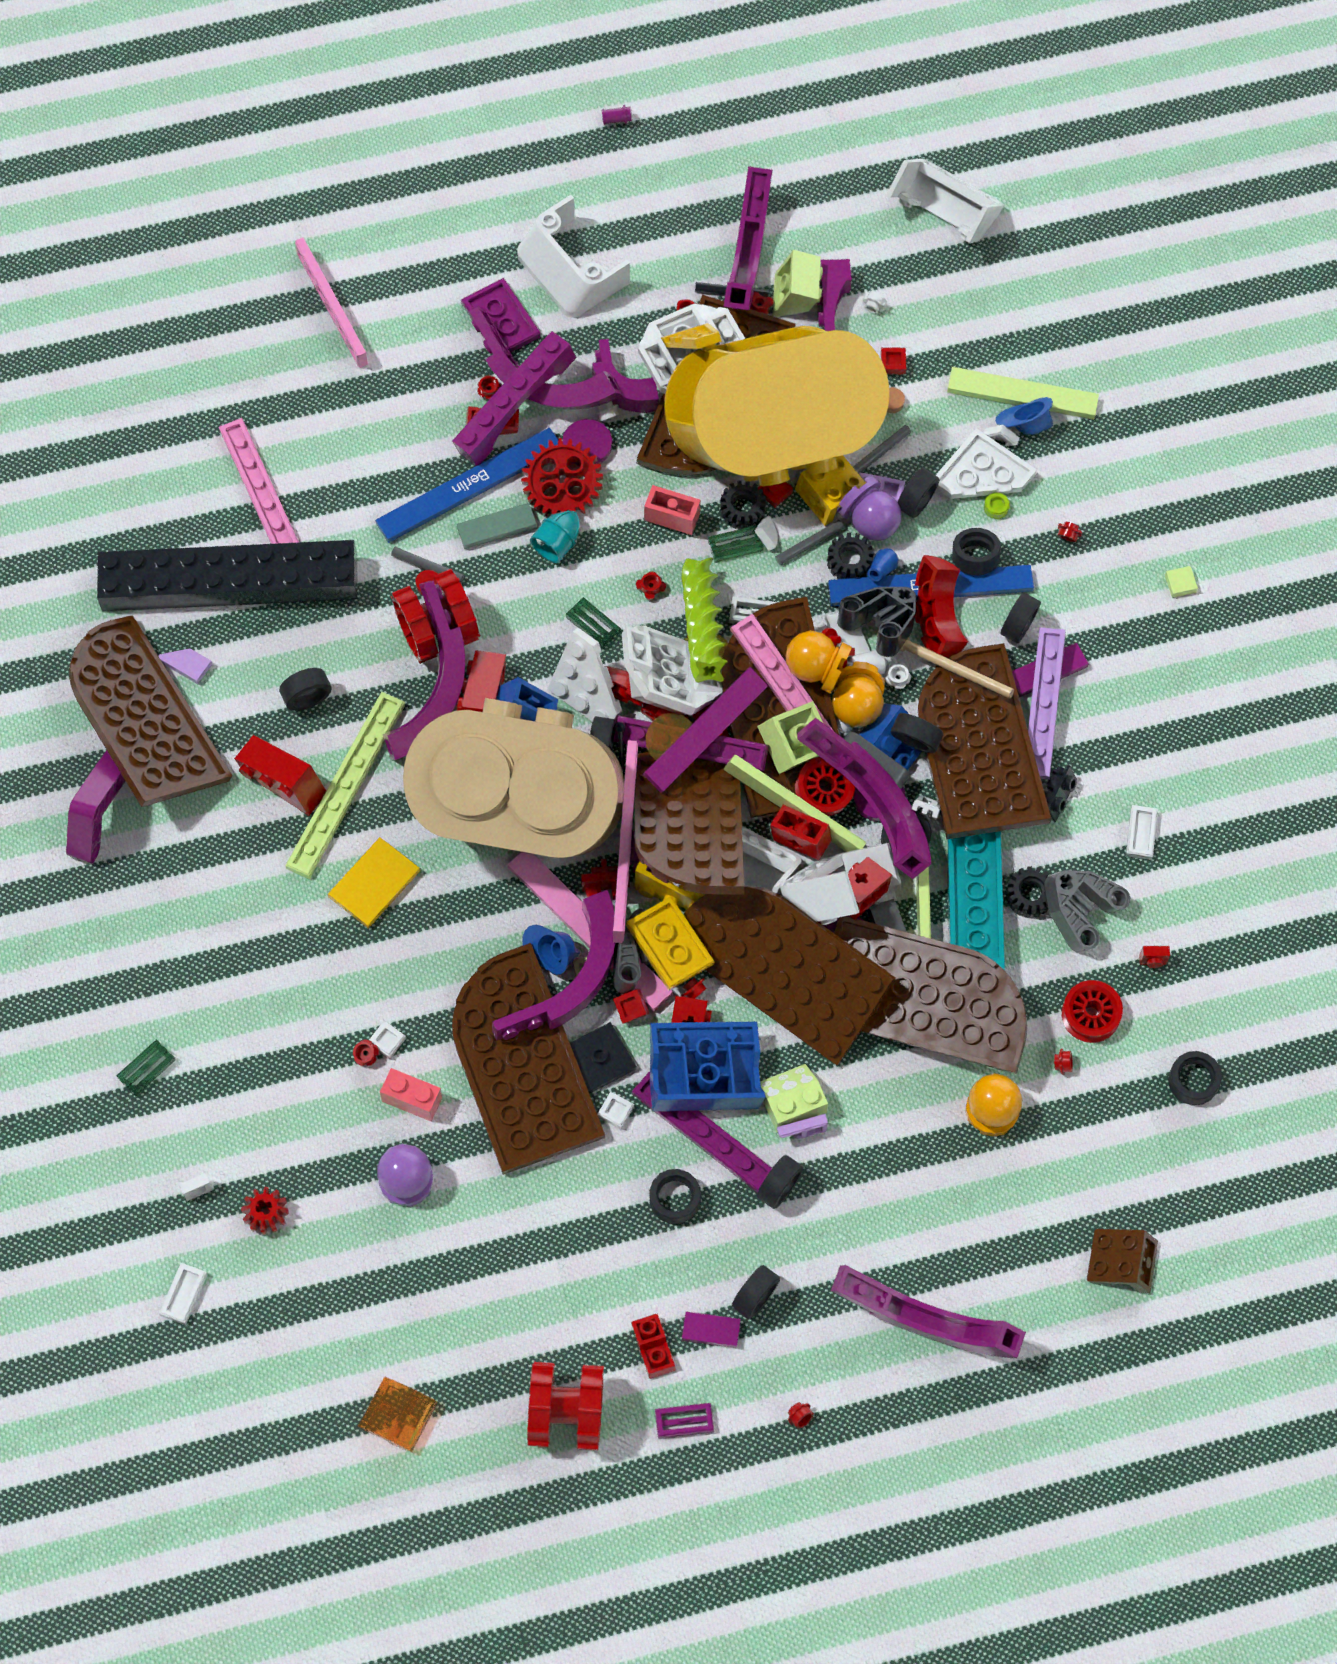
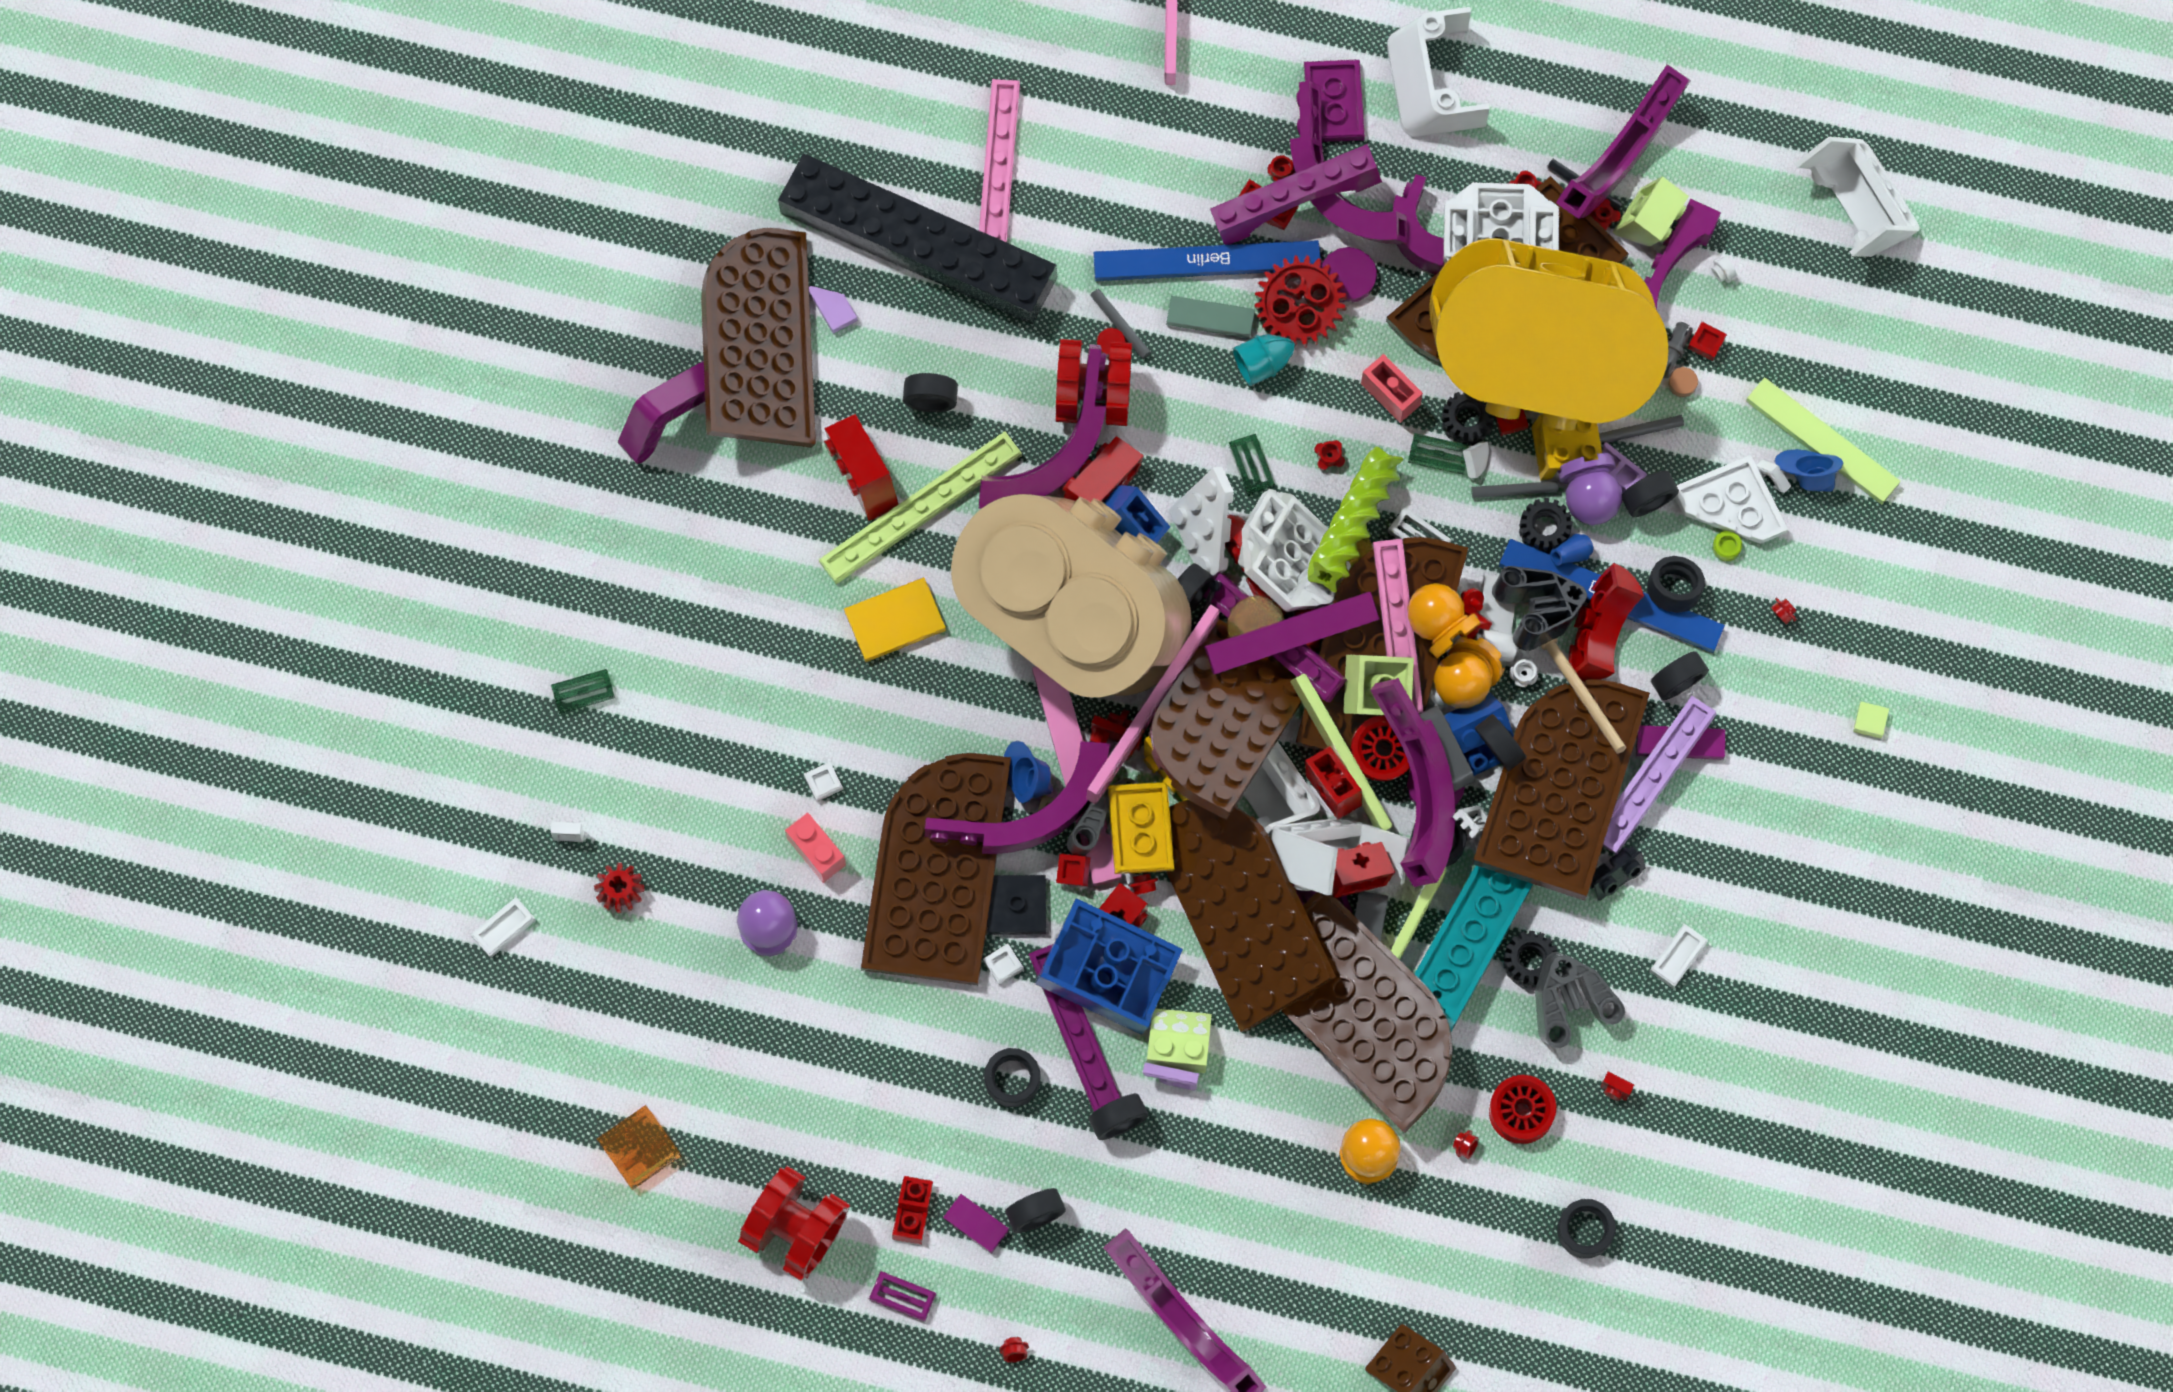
camera: 30 degrees right, 5 degrees up
(358, 1053) = (788, 784): red plate -> none
(607, 411) = (1385, 252): white plate -> none
(697, 337) = (1502, 224): yellow wing -> none

